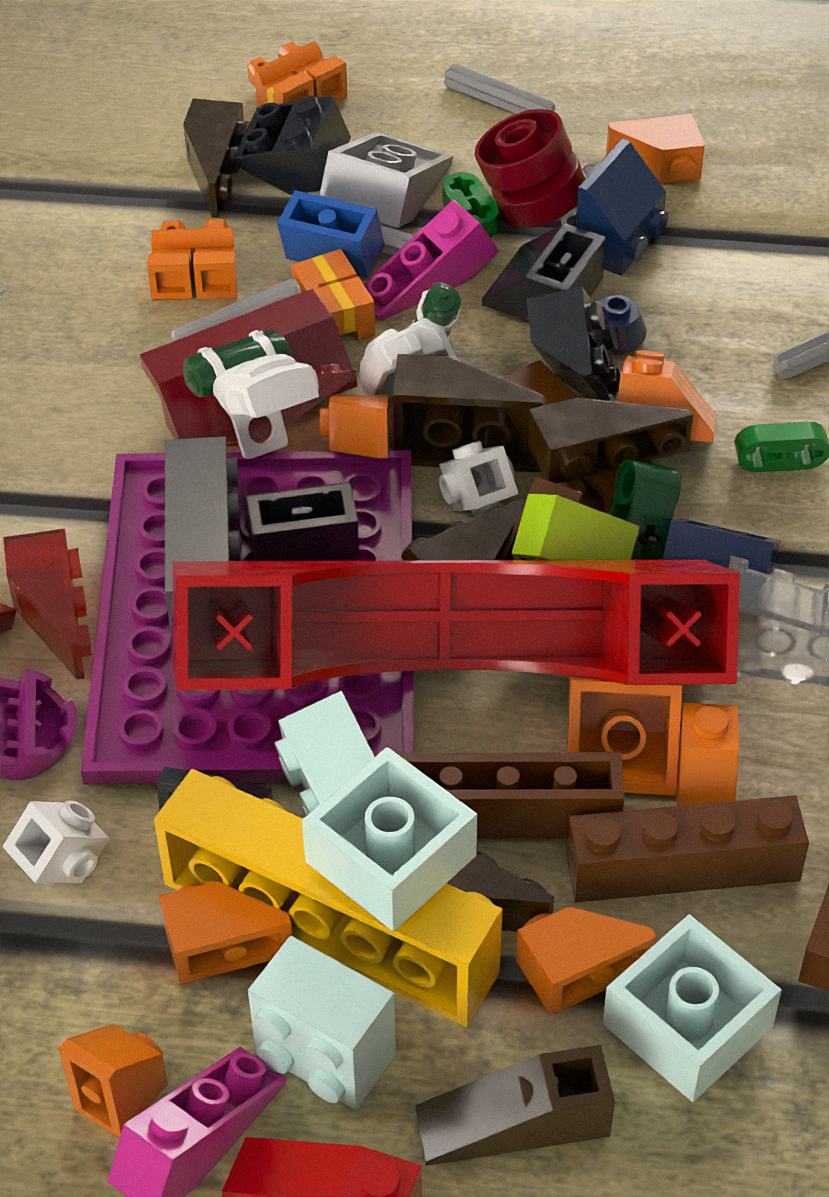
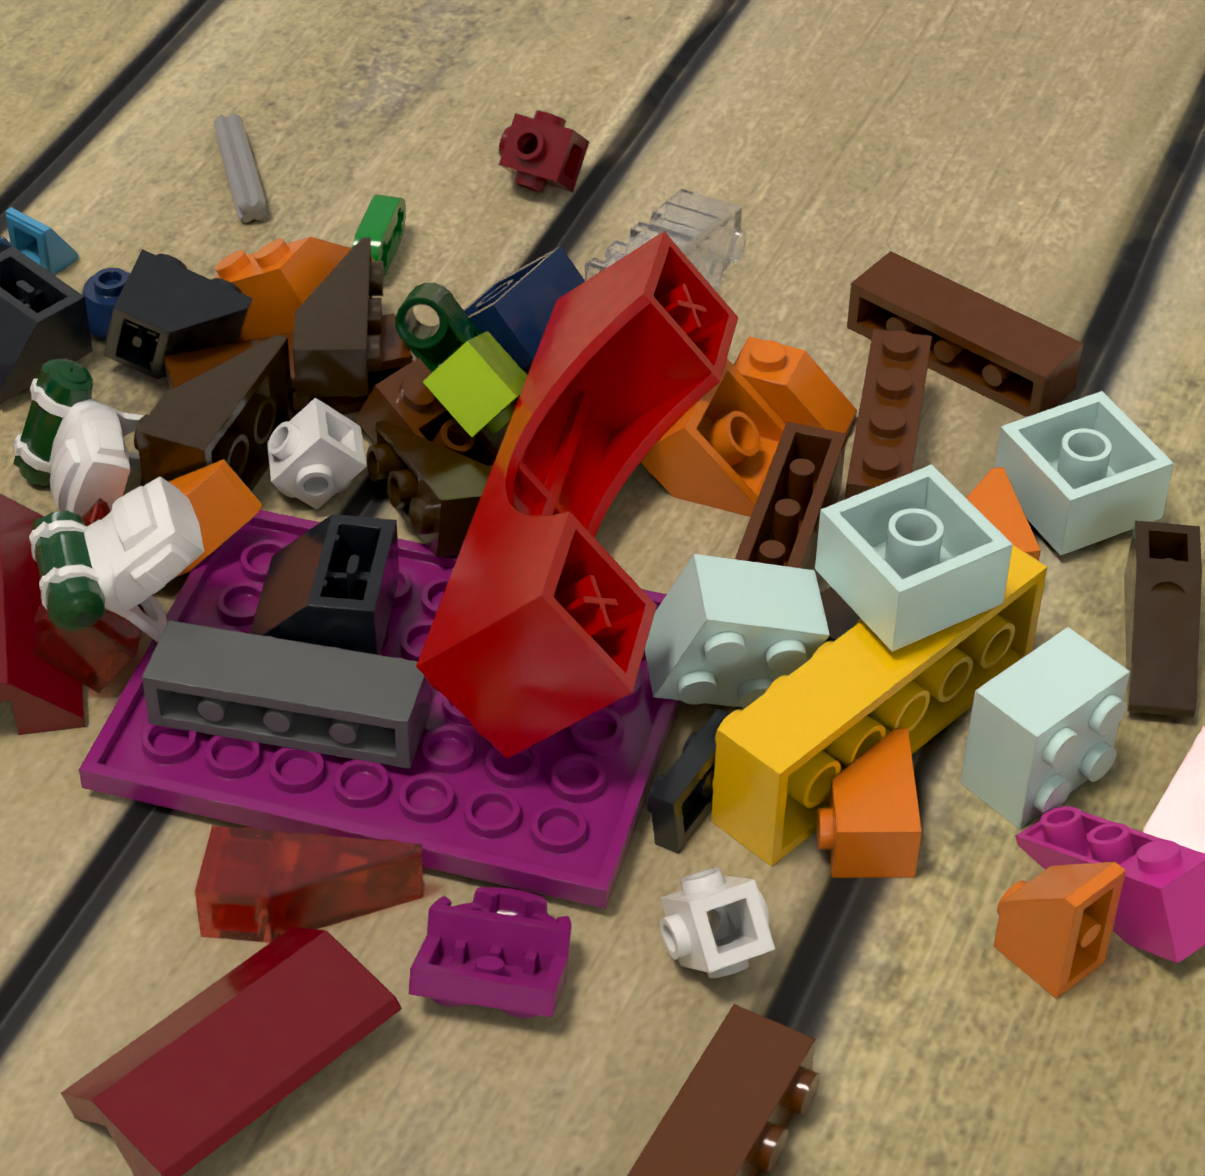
camera: 75 degrees left, 5 degrees down
(668, 264) = (39, 242): none -> dark azure slope

